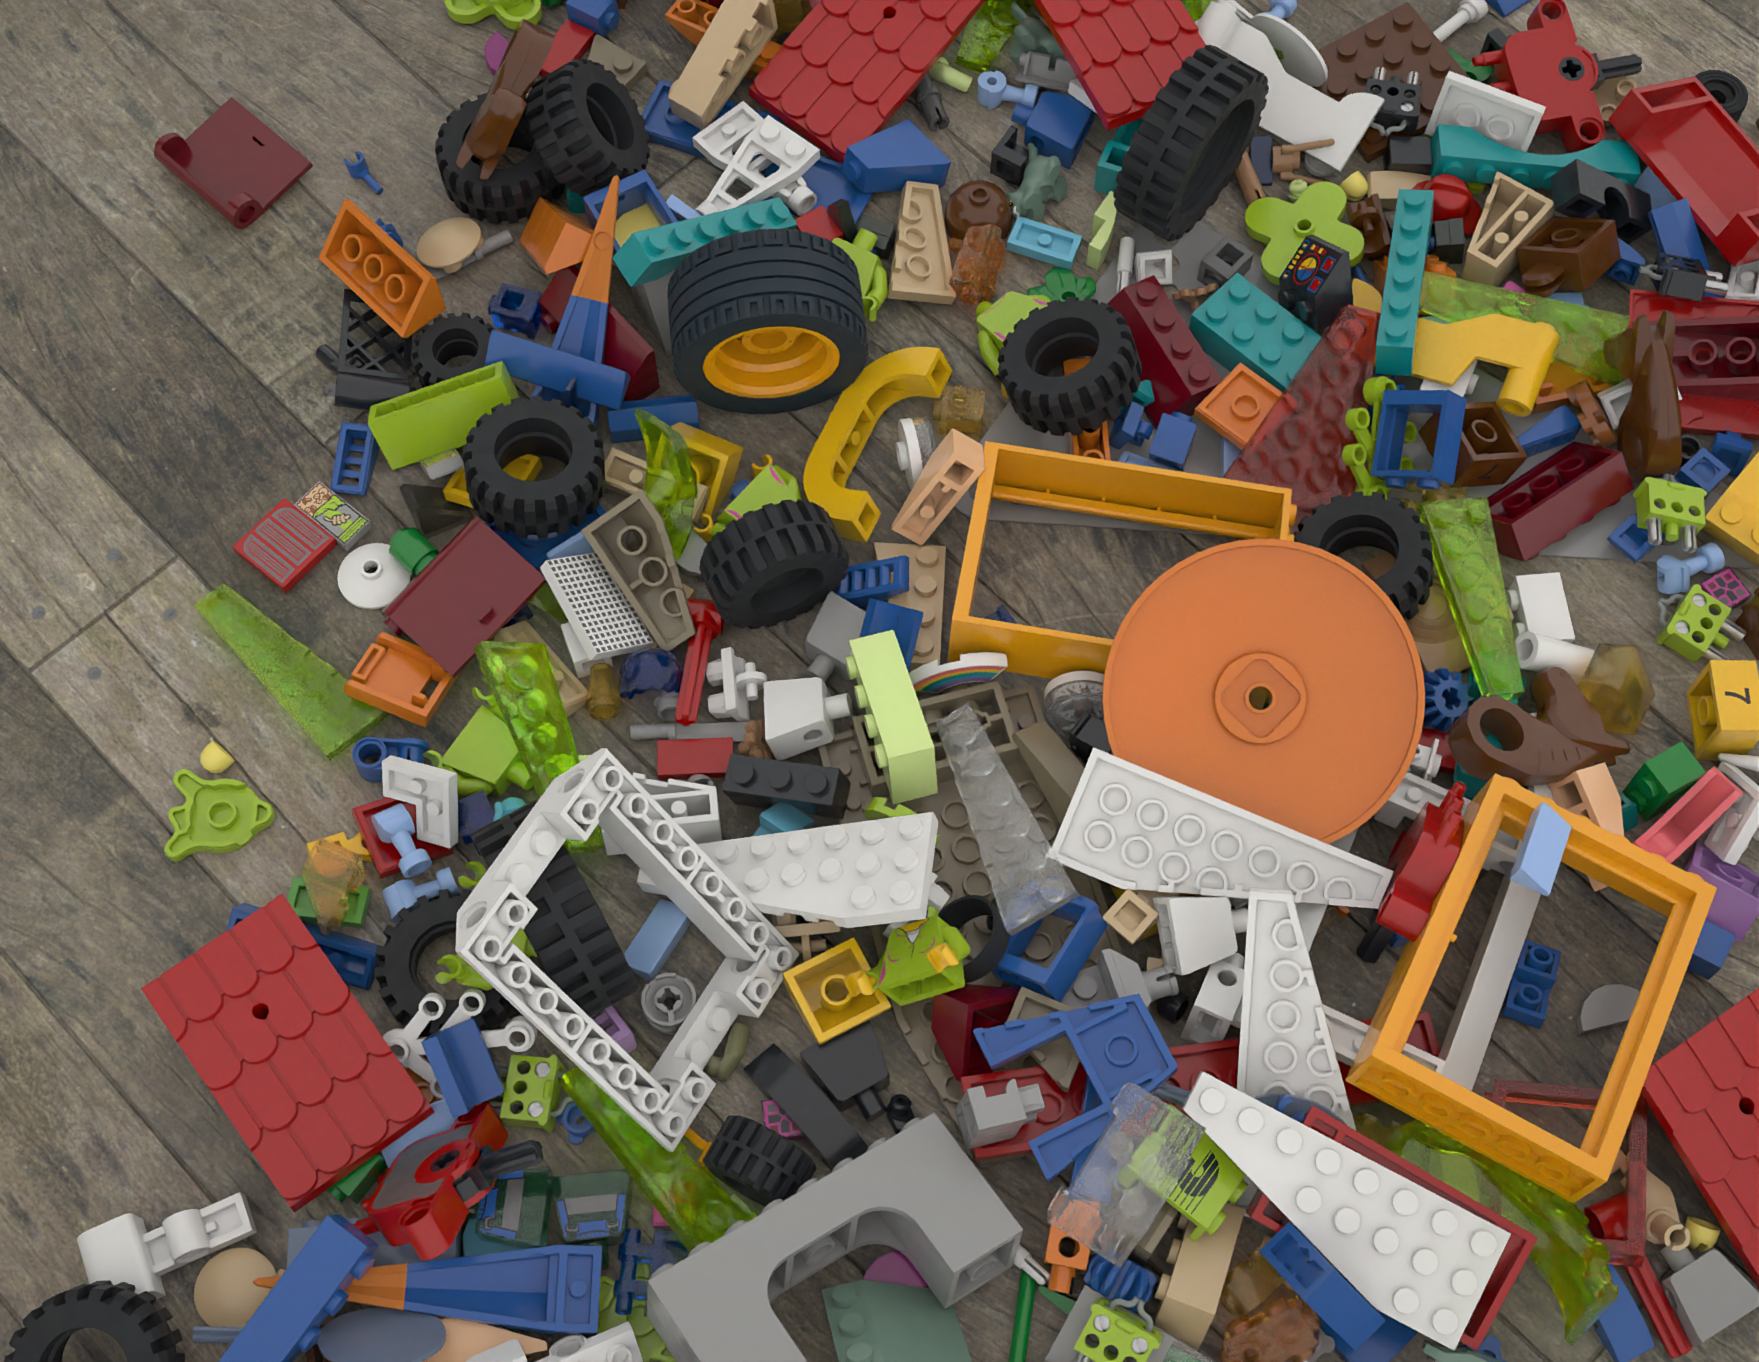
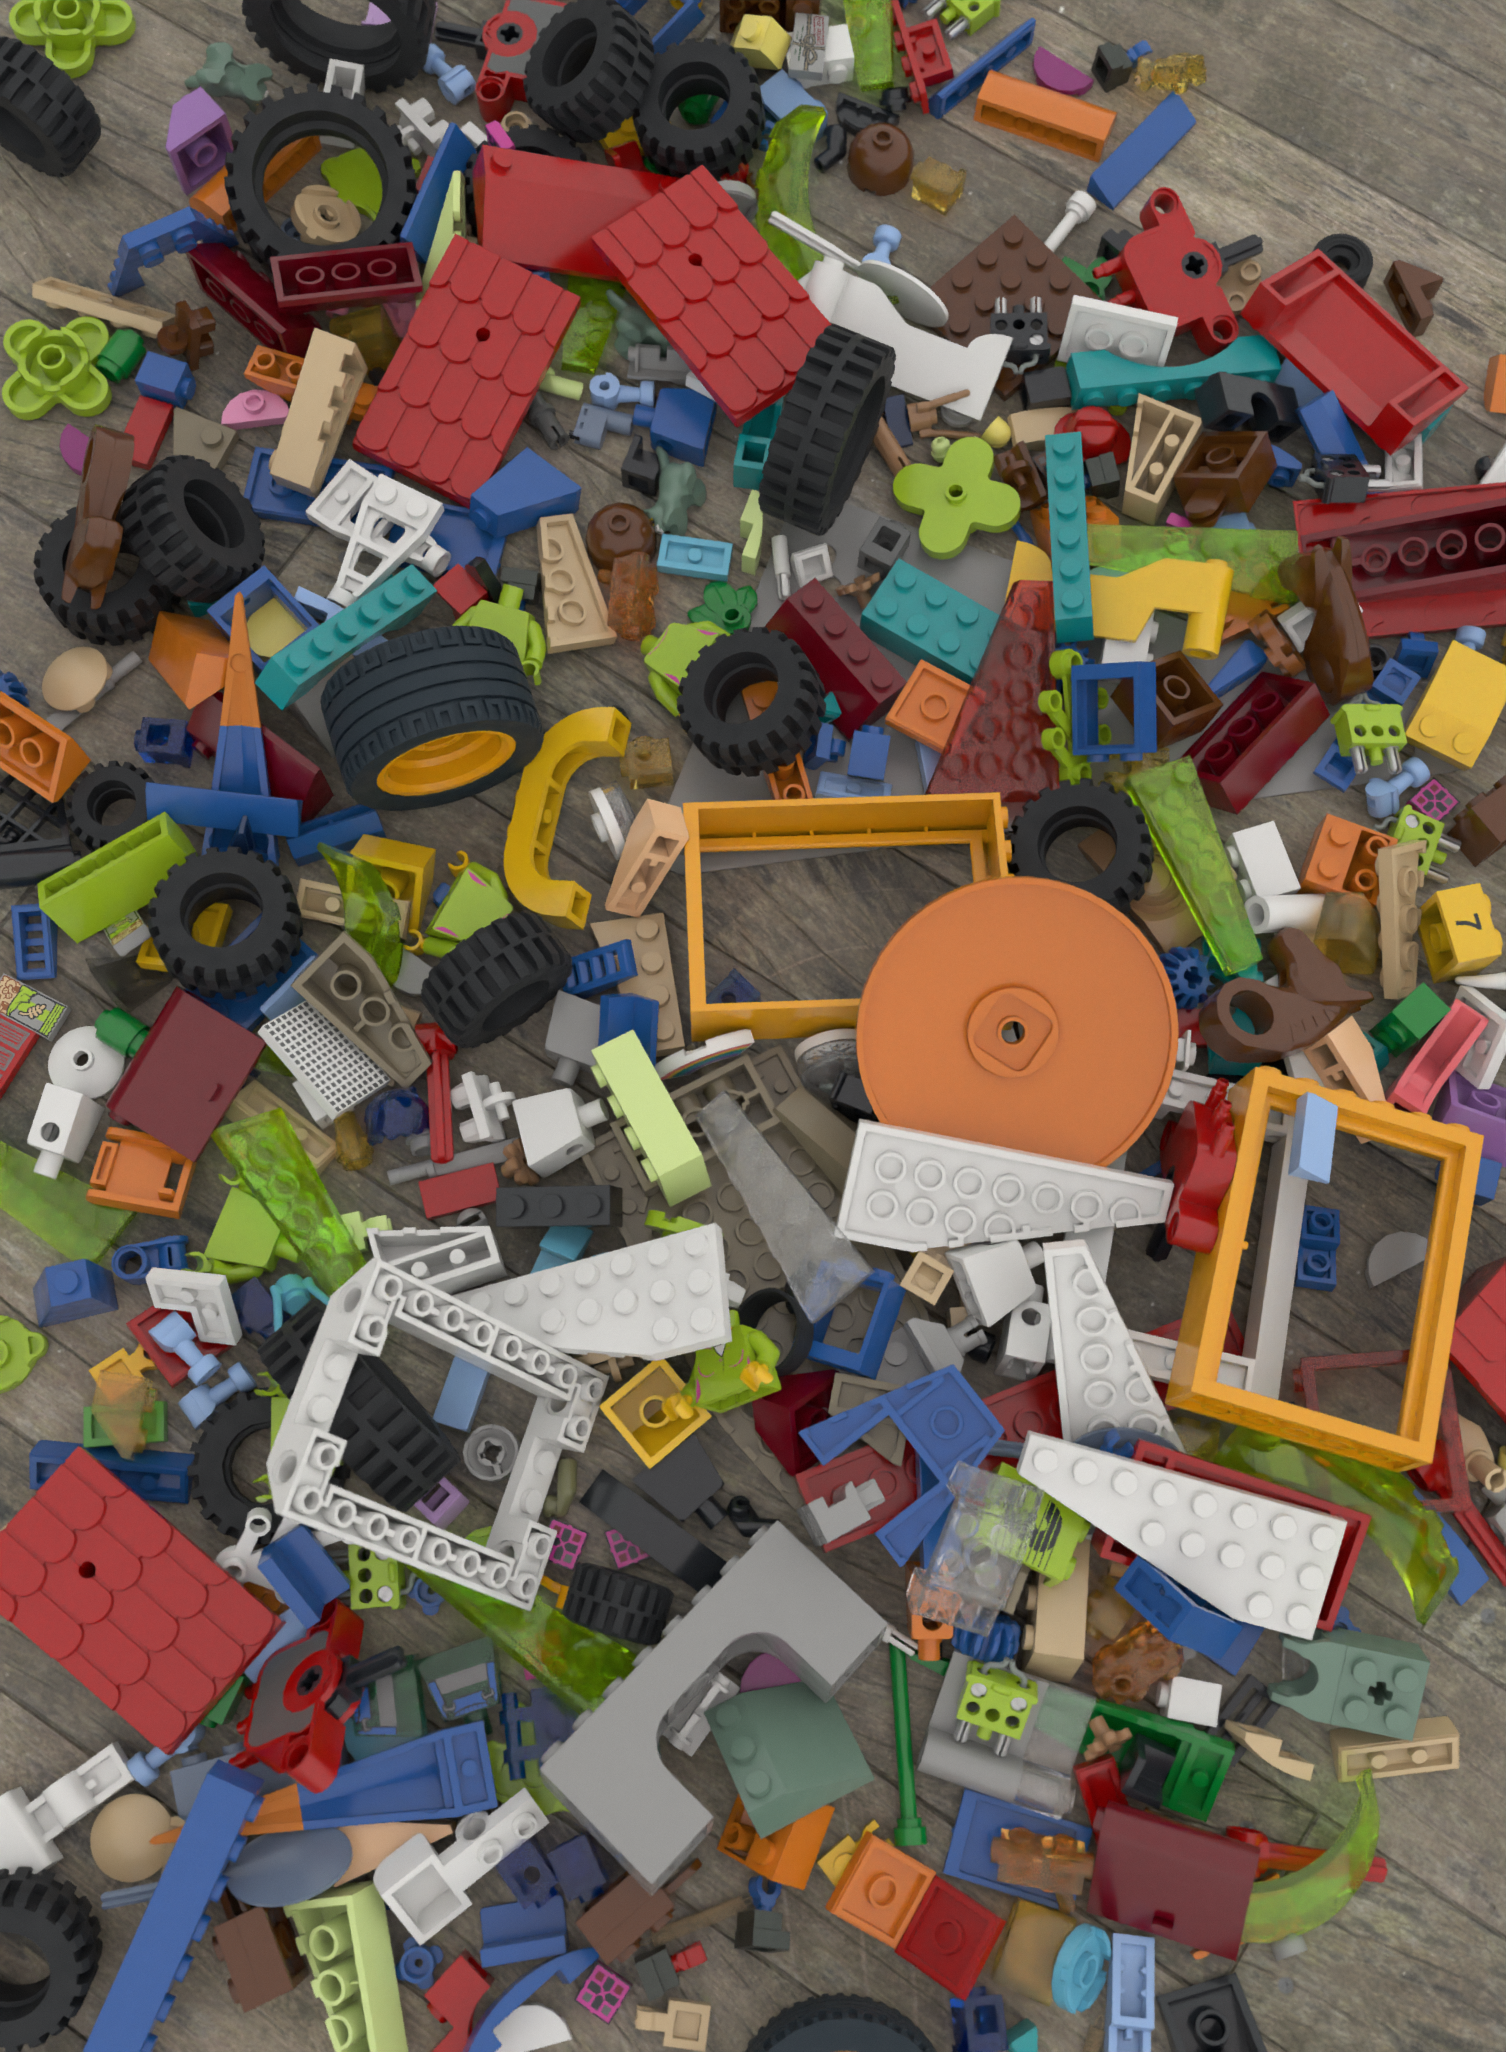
camera: 15 degrees left, 10 degrees up
(266, 1223) = (145, 1766): none -> light blue leg
(310, 769) = (73, 1292): none -> blue slope
(339, 621) = (62, 1128): none -> white torso
(666, 49) = (255, 409): none -> bright pink plate
(720, 1104) = (567, 1544): none -> tile
(804, 1302) = (691, 1725): none -> white hinge
(976, 113) = (596, 421): none -> sand blue piece
(1316, 282) = (981, 557): black slope -> none
(1628, 618) = (1343, 859): none -> orange slope
(1669, 671) = (1399, 915): none -> tan wing

